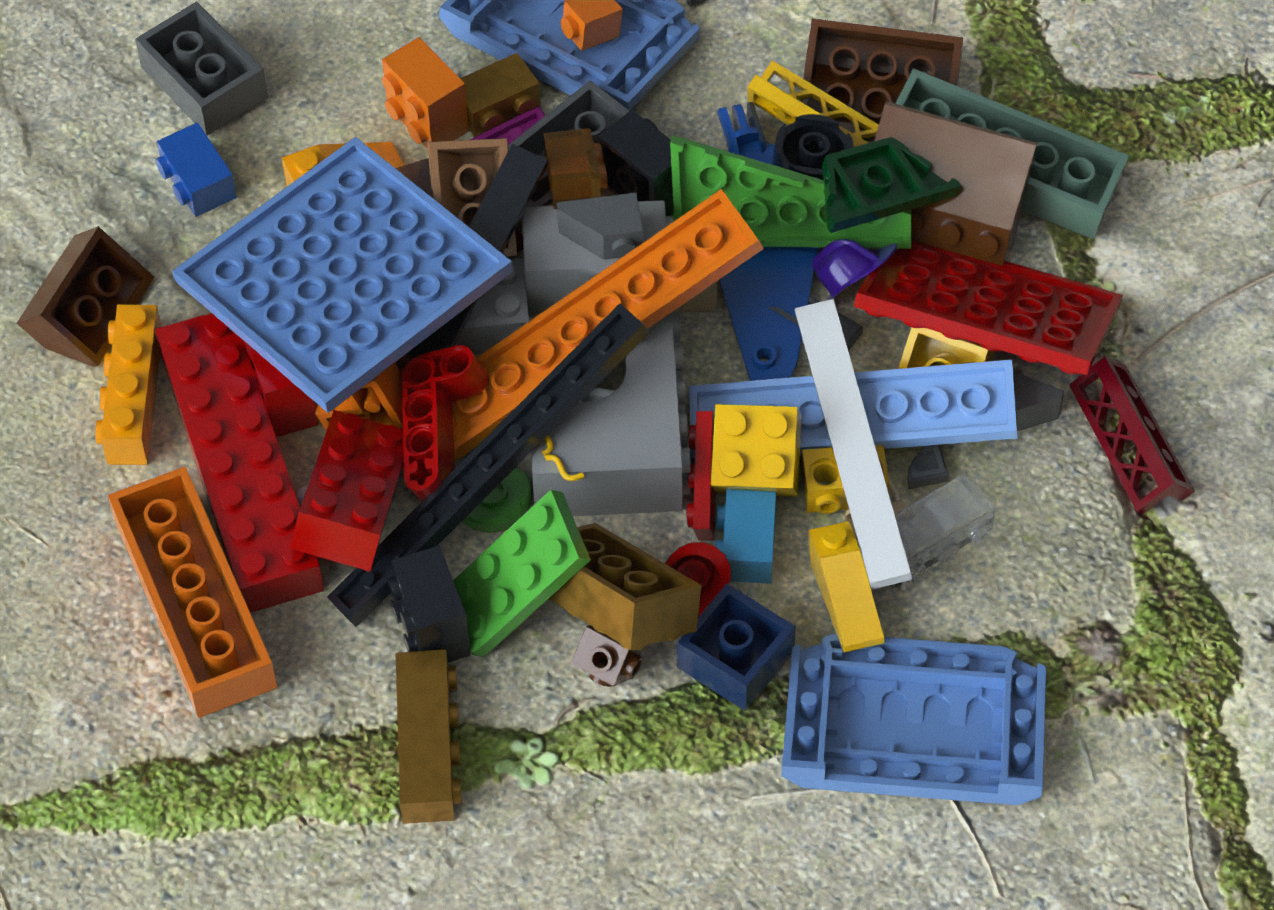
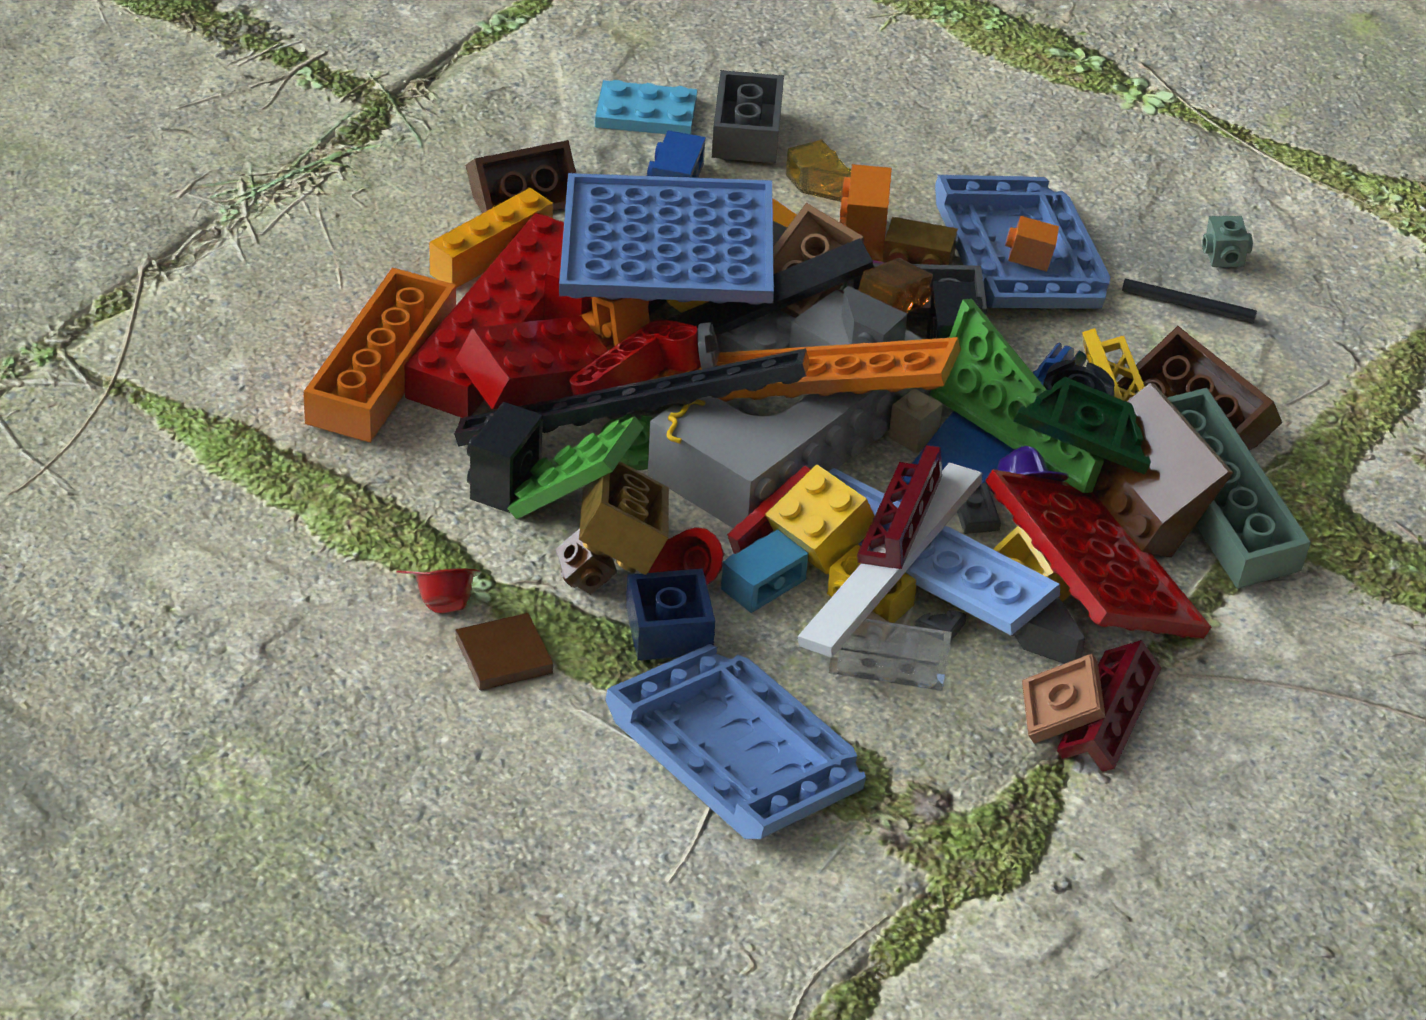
camera: 40 degrees right, 15 degrees down
(86, 125) = (645, 107): none -> medium azure plate
(324, 79) = (816, 170): none -> clear yellow slope
(425, 736) = (418, 523): pearl gold brick -> none
(488, 359) = (707, 346): none -> dark grey tile
(520, 783) = (445, 589): none -> red piece
(634, 798) = (504, 651): none -> reddish brown tile
(831, 380) = (908, 516): none -> dark red fence
(845, 586) = (777, 644): yellow slope -> none
(1101, 461) = (1063, 698): none -> nougat tile

